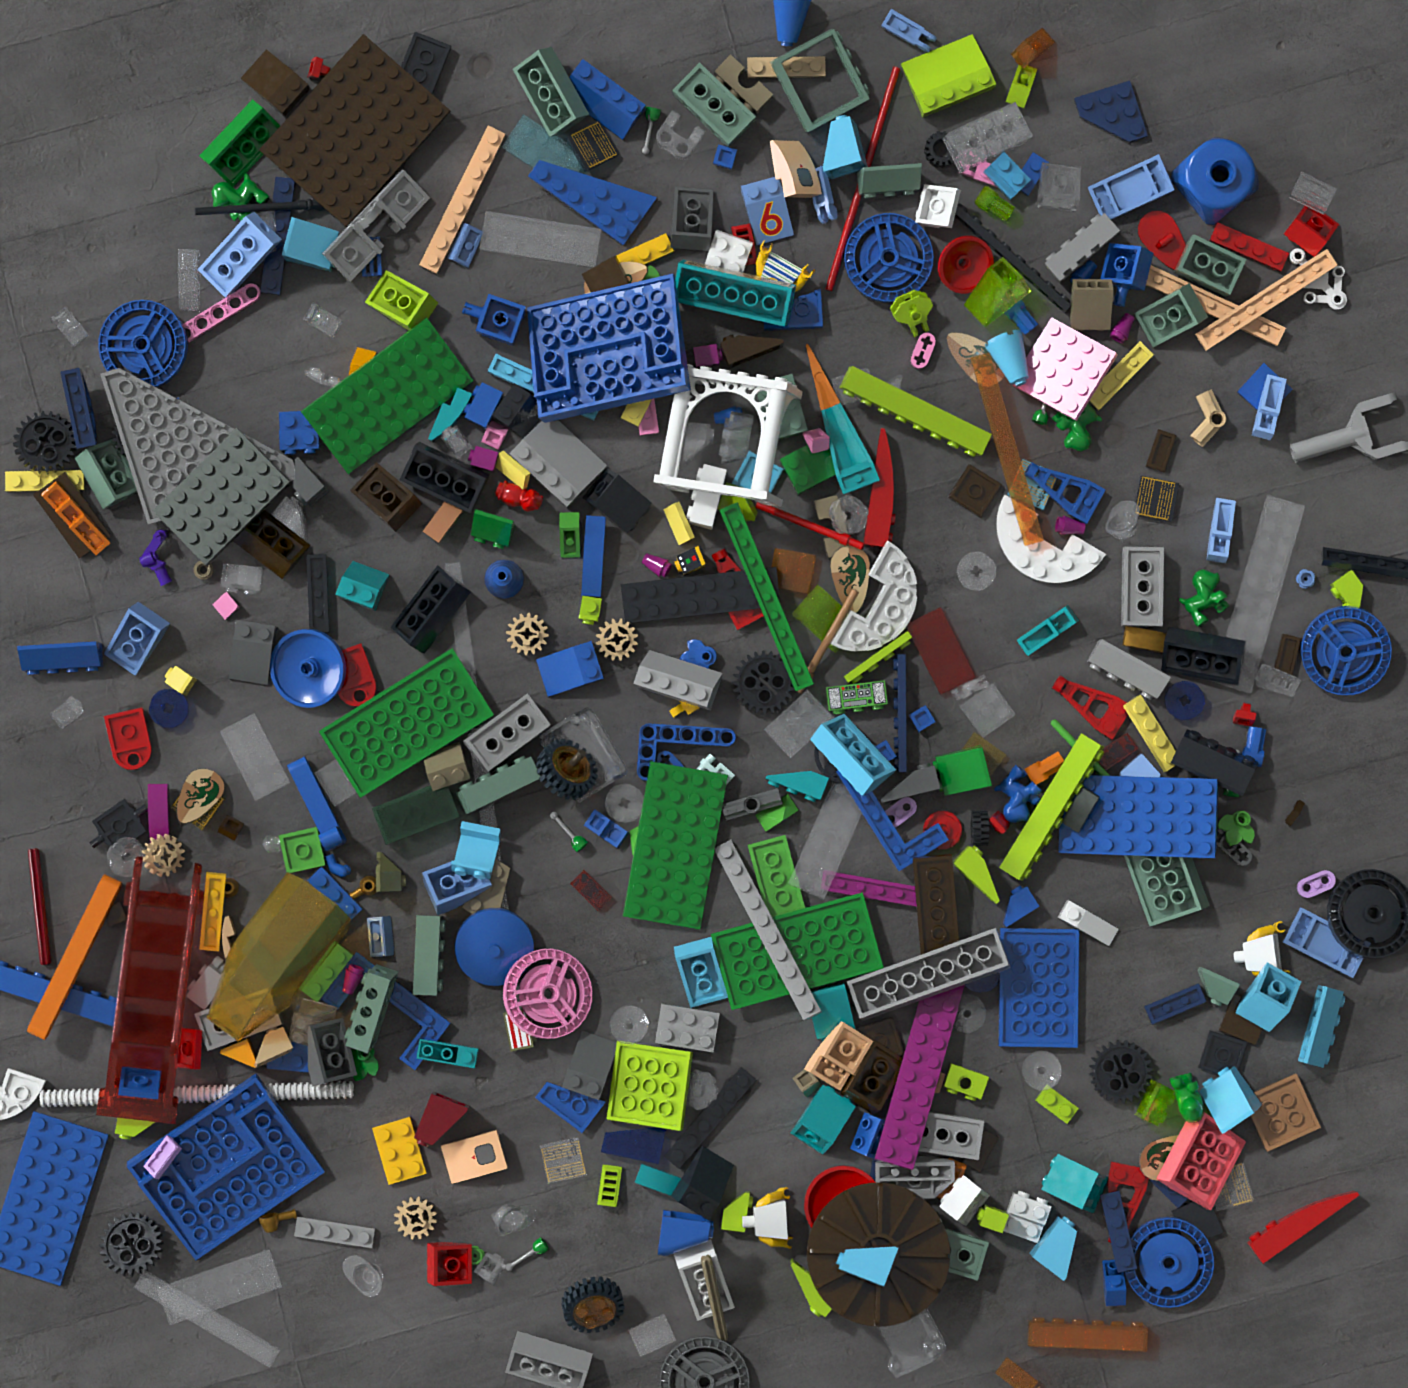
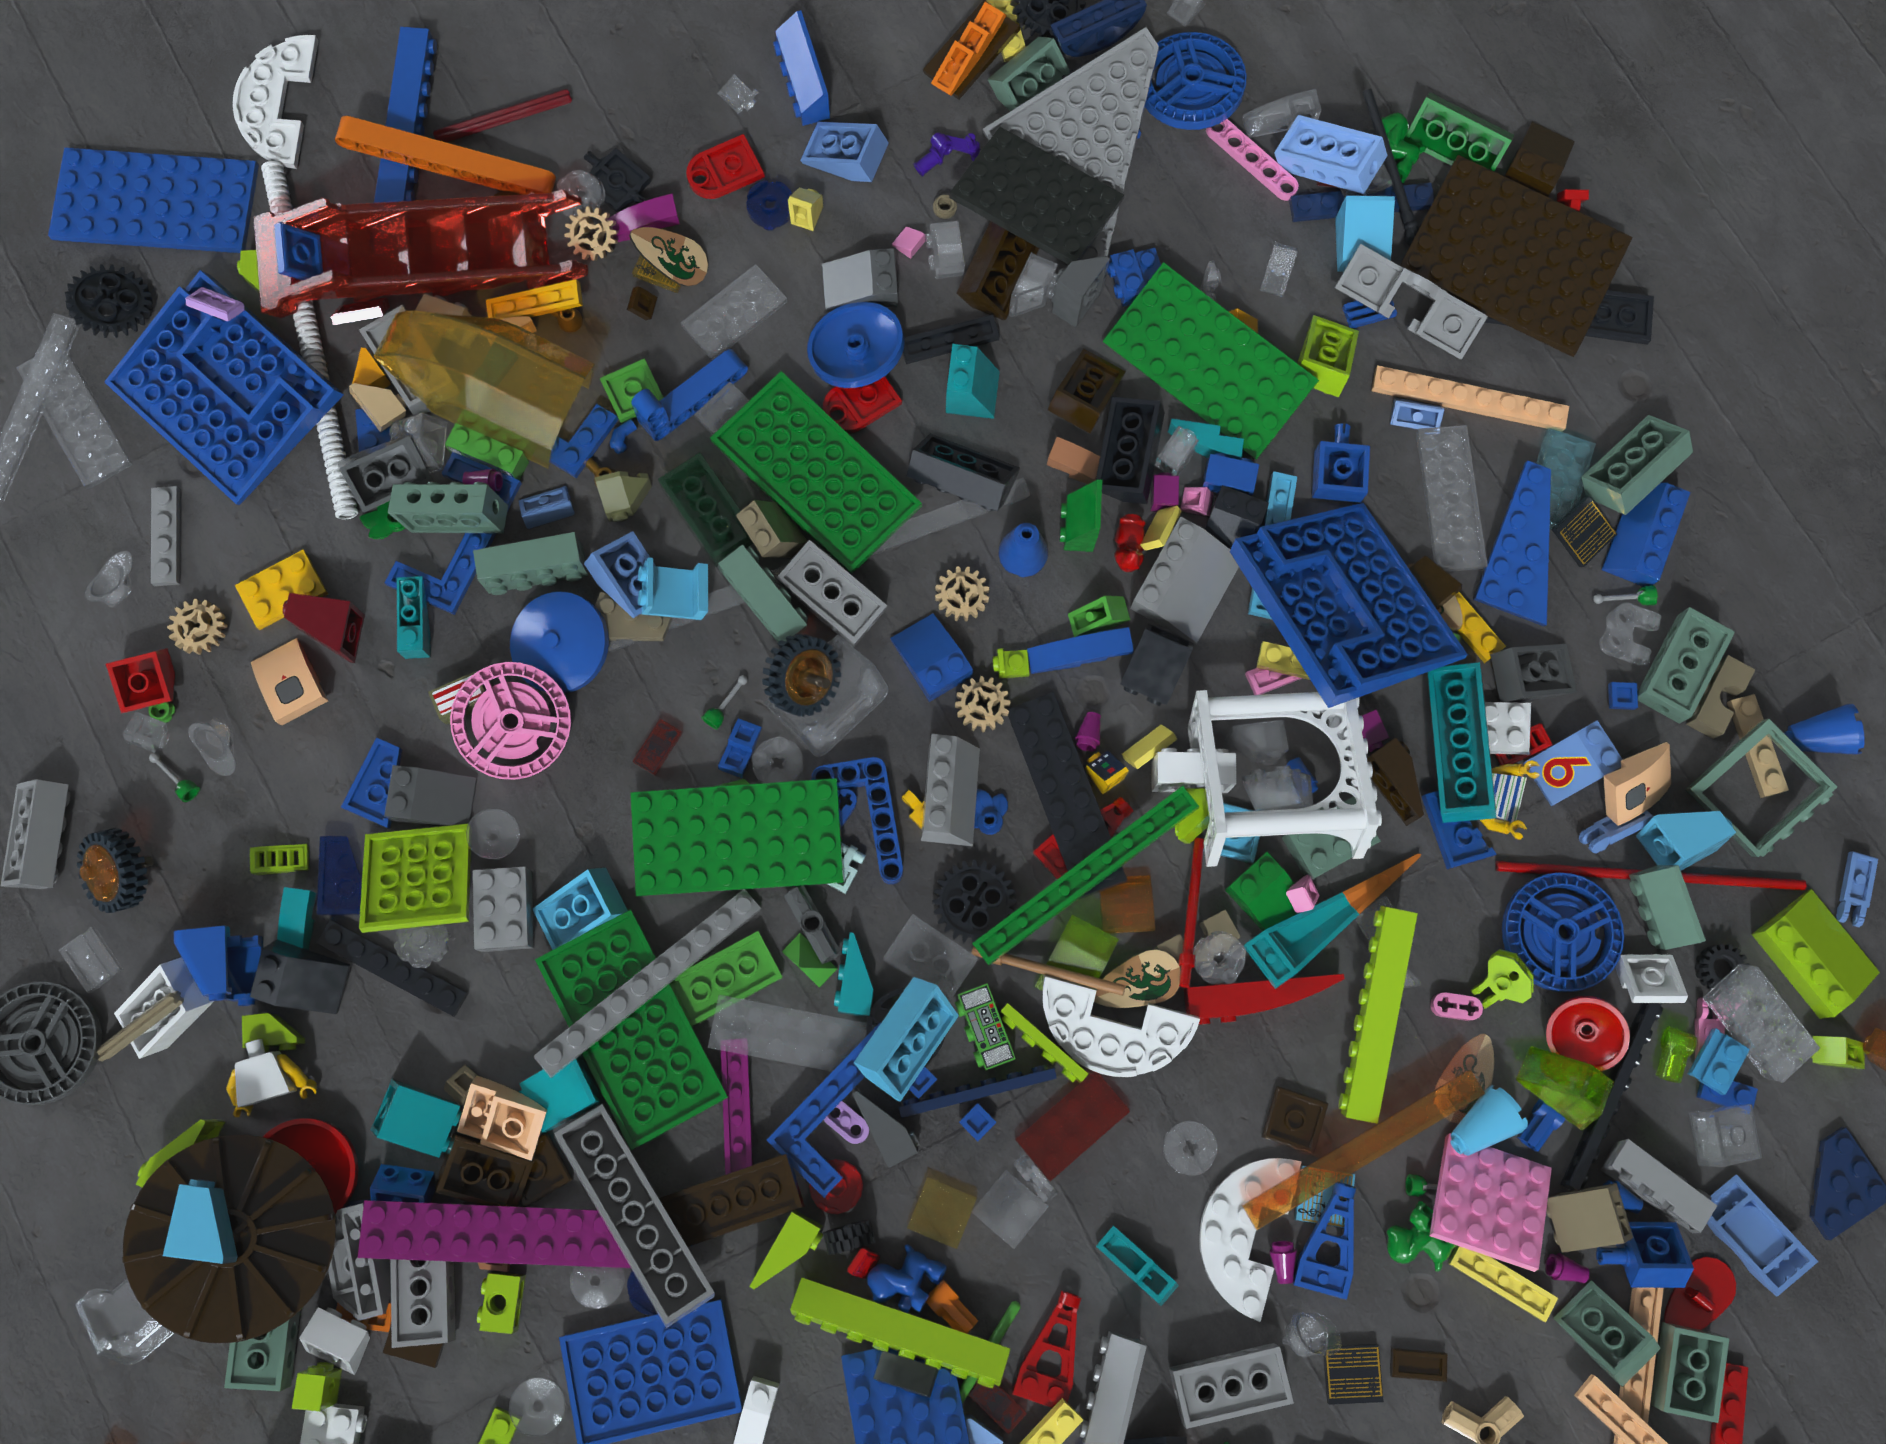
camera: 75 degrees right, 10 degrees down
(271, 843) = (632, 353): clear plate -> none
(271, 1220) = (167, 456): pearl gold bar -> none
(563, 1160) = (304, 793): clear tile -> none
(962, 770) = (920, 1193): green slope -> none
(1019, 905) = (756, 1318): blue slope -> none
(1144, 639) = (1159, 1406): pearl gold slope -> none
(1208, 197) = (1811, 1352): blue piece -> none

